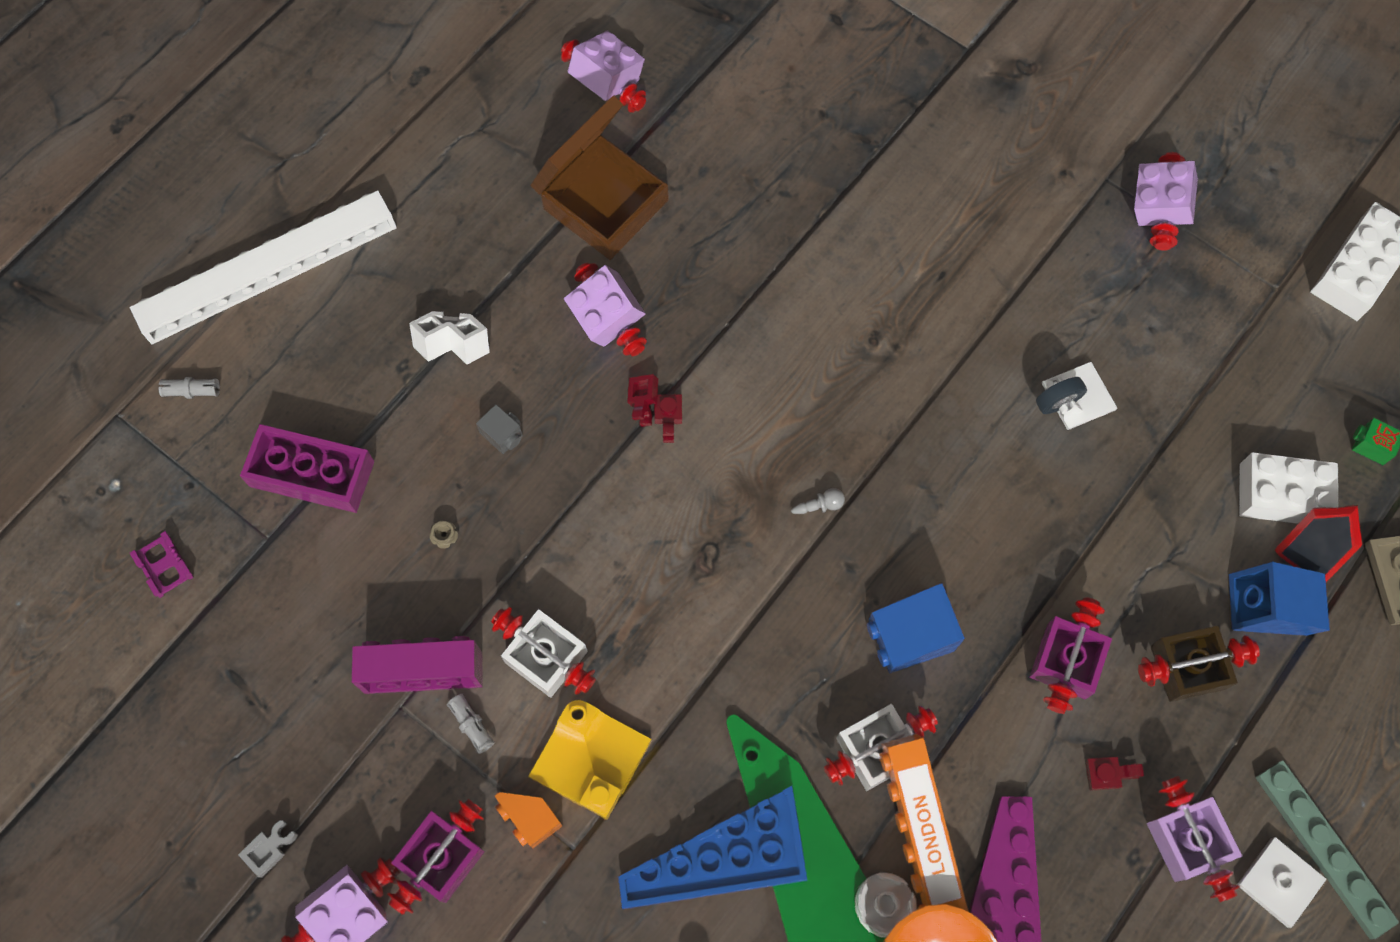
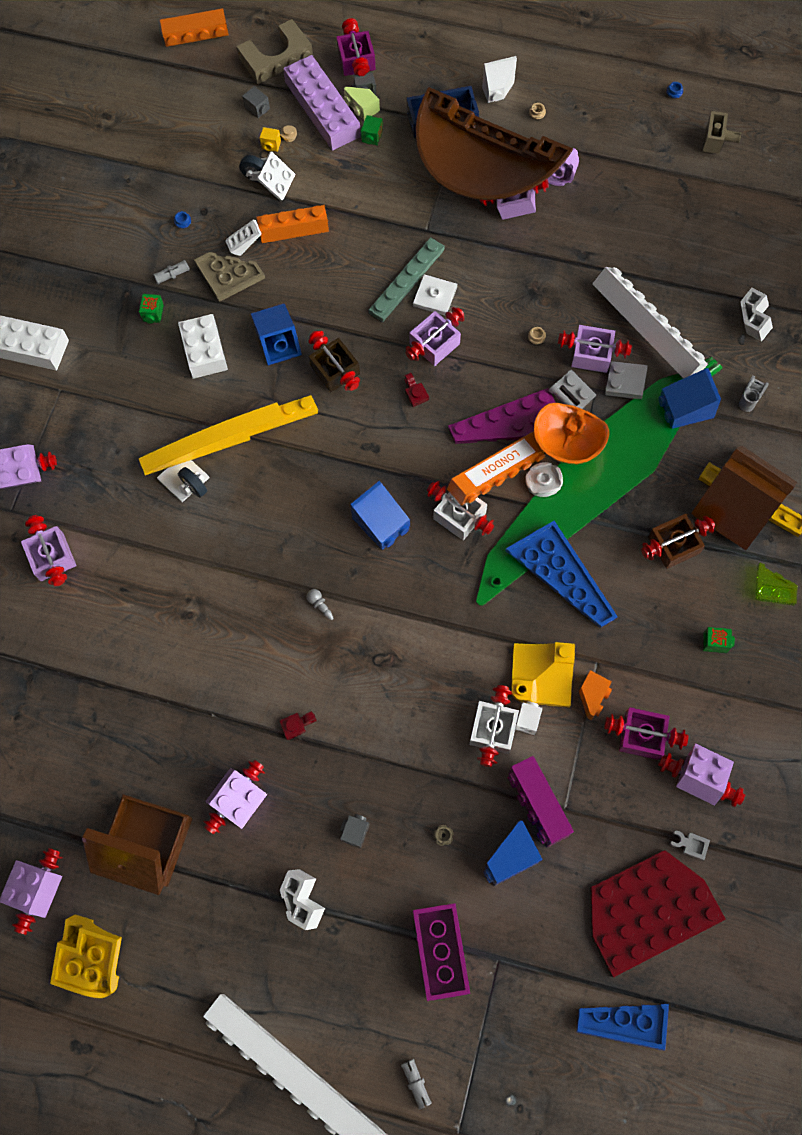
camera: 110 degrees left, 0 degrees up
(107, 659) = (627, 1024): none -> blue wing
(153, 570) = (557, 1029): magenta piece -> none
(220, 753) = (649, 911): none -> dark red plate
(368, 601) = (512, 856): none -> blue slope
(470, 723) = (556, 756): light grey pin -> none
(503, 97) = (86, 959): none -> yellow slope
(536, 707) = (528, 718): none -> white brick
(642, 393) = (289, 746): dark red plate -> none
(1025, 196) = (47, 551): none -> lavender brick
(1071, 656) = (359, 427): magenta brick -> none
(1127, 480) = (227, 434): none -> yellow slope
(1323, 540) = (231, 319): black tile -> none

